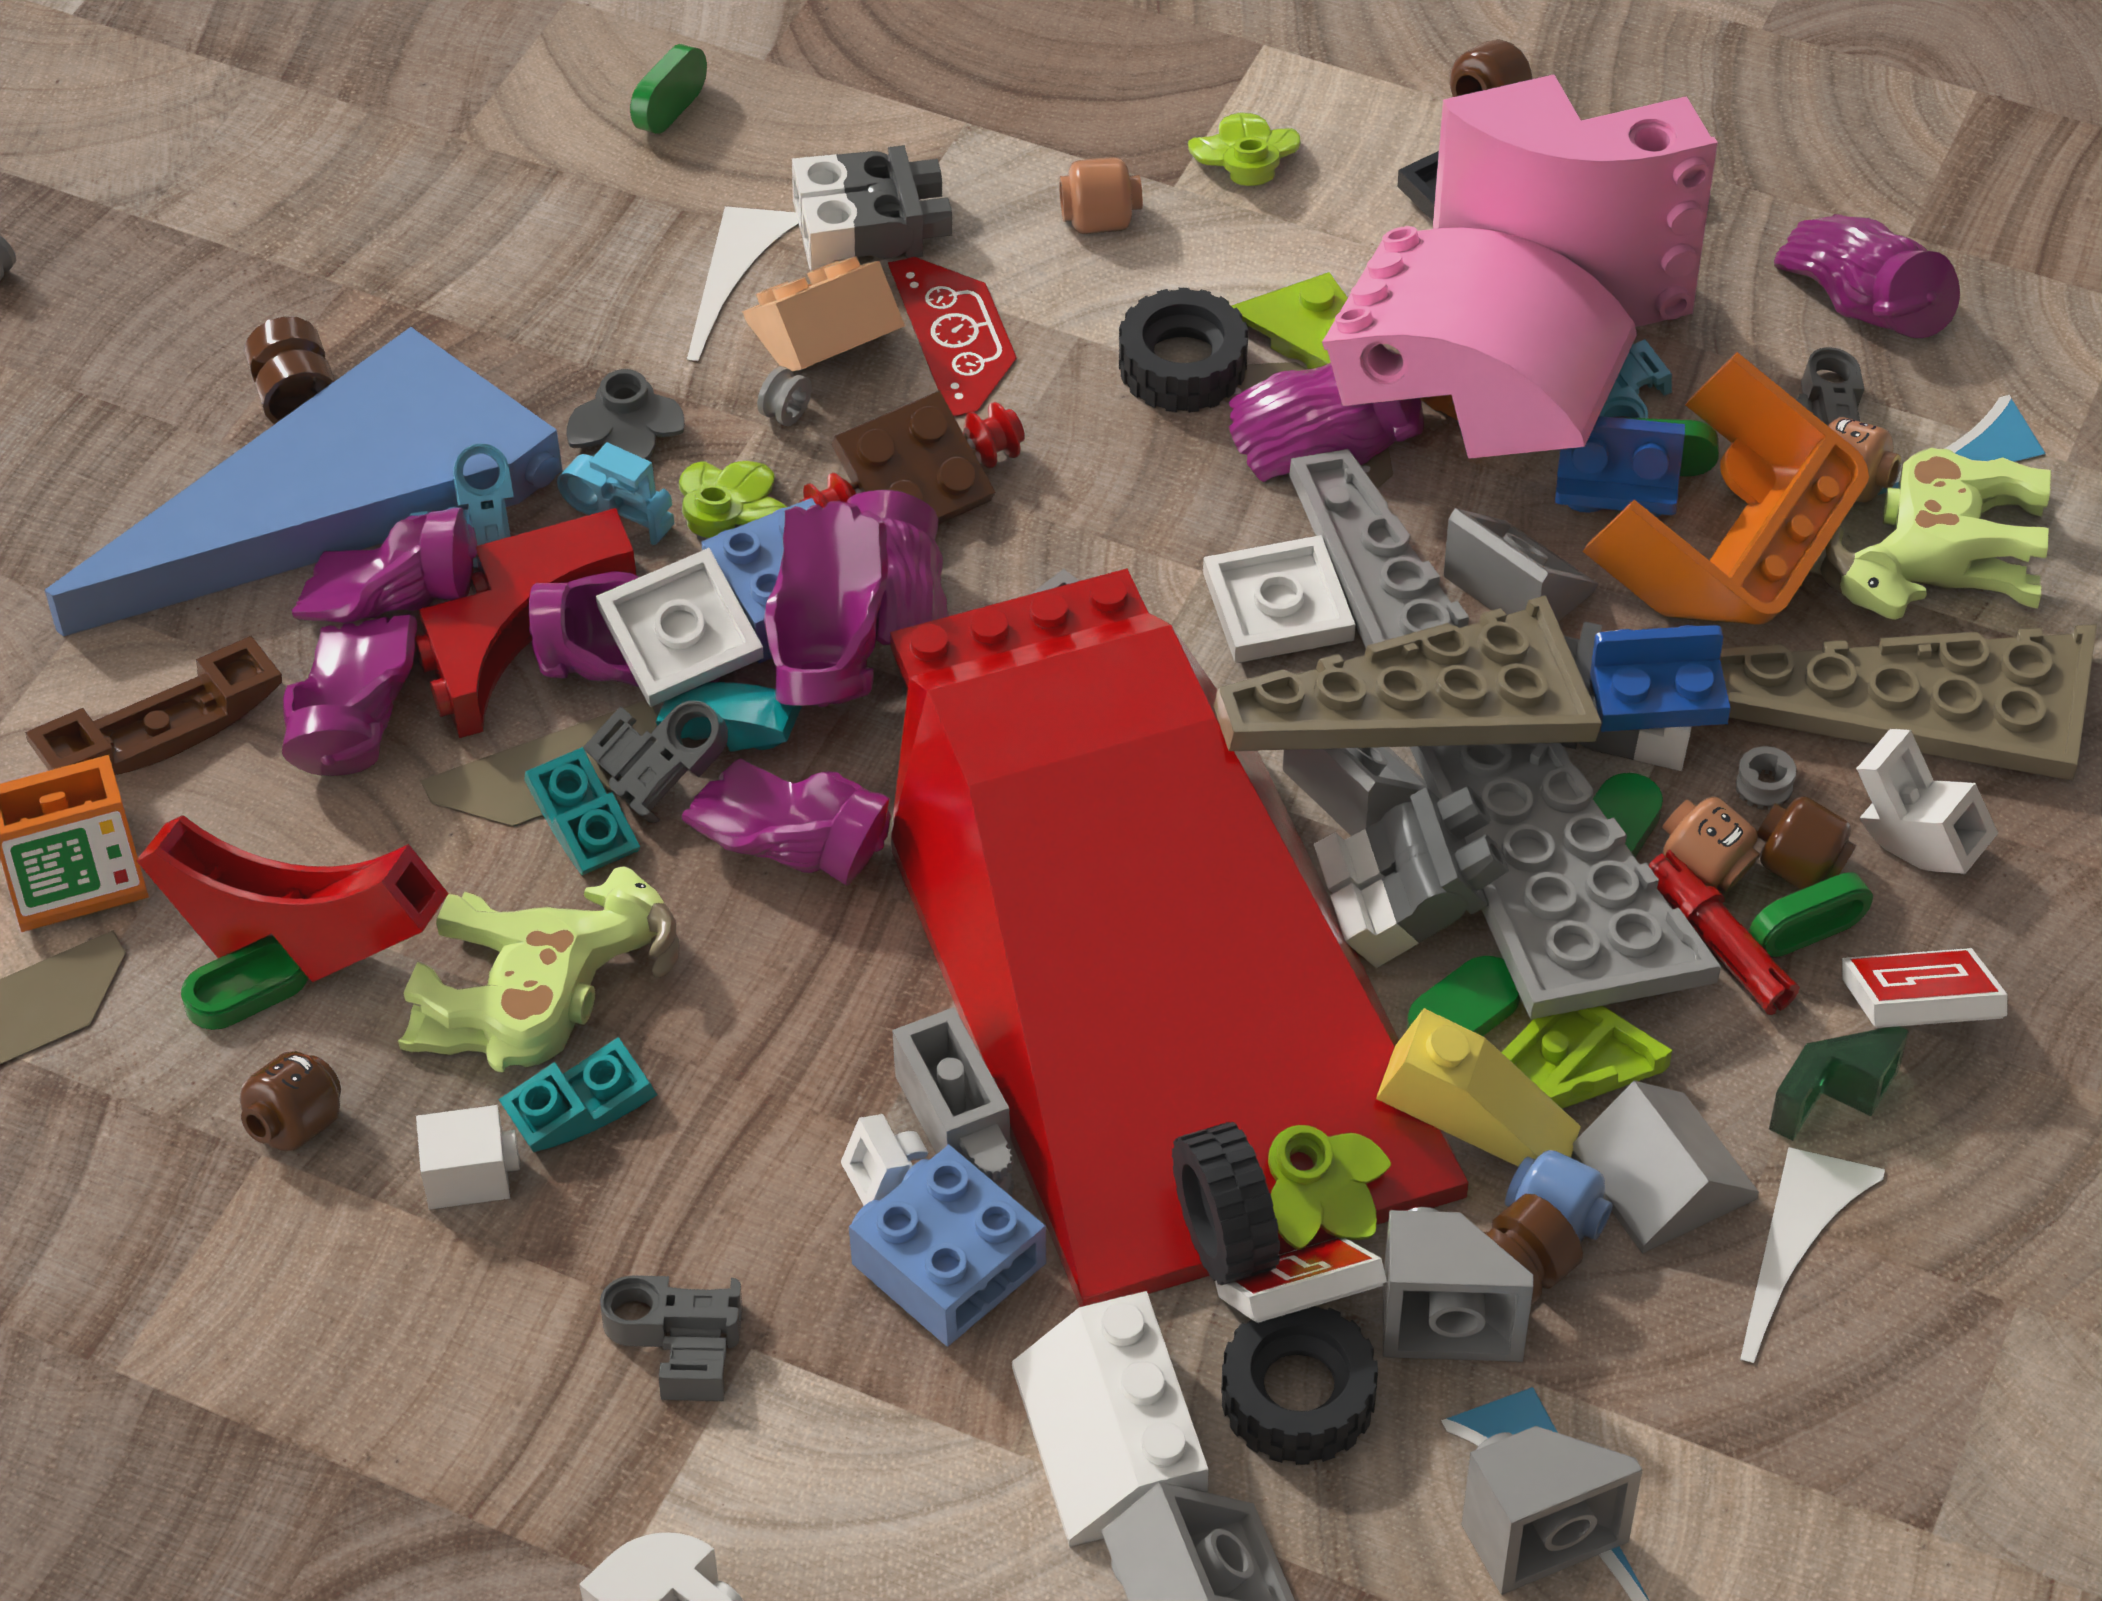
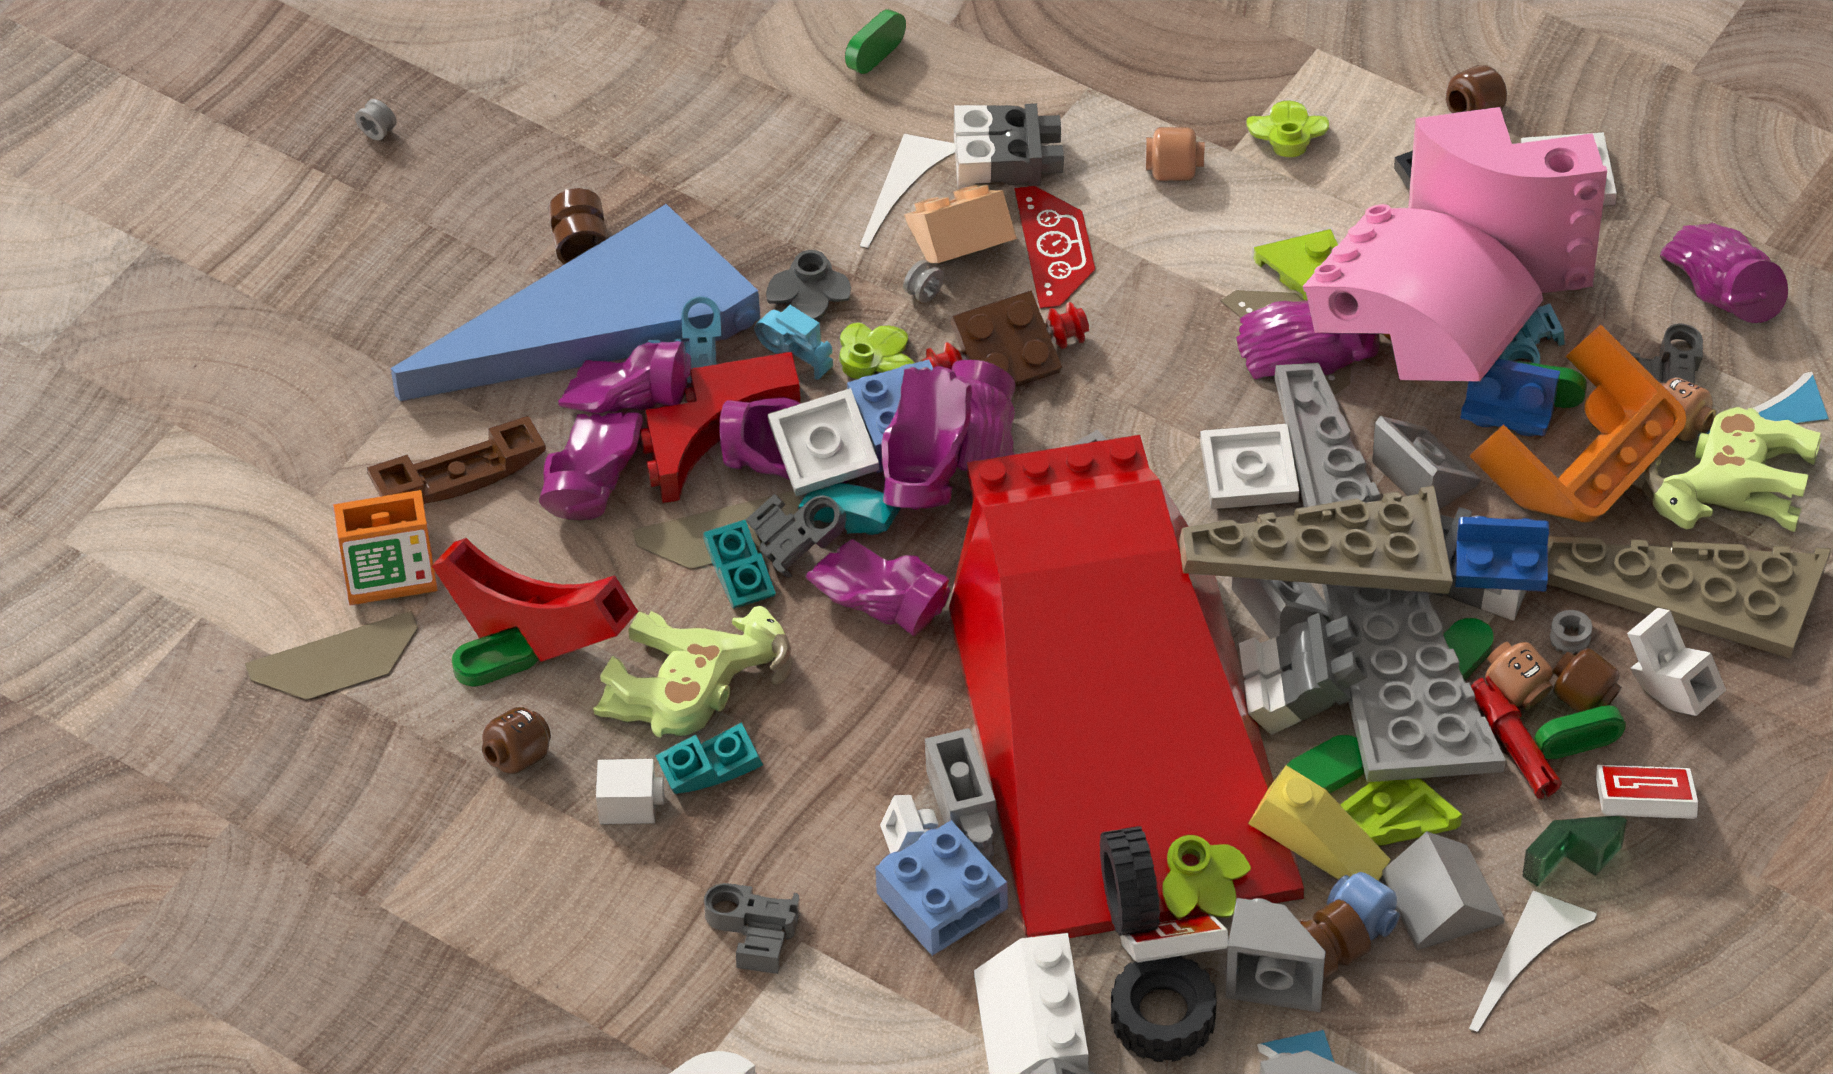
camera: 10 degrees right, 0 degrees up
(1183, 315) = (1214, 250): black tyre -> none

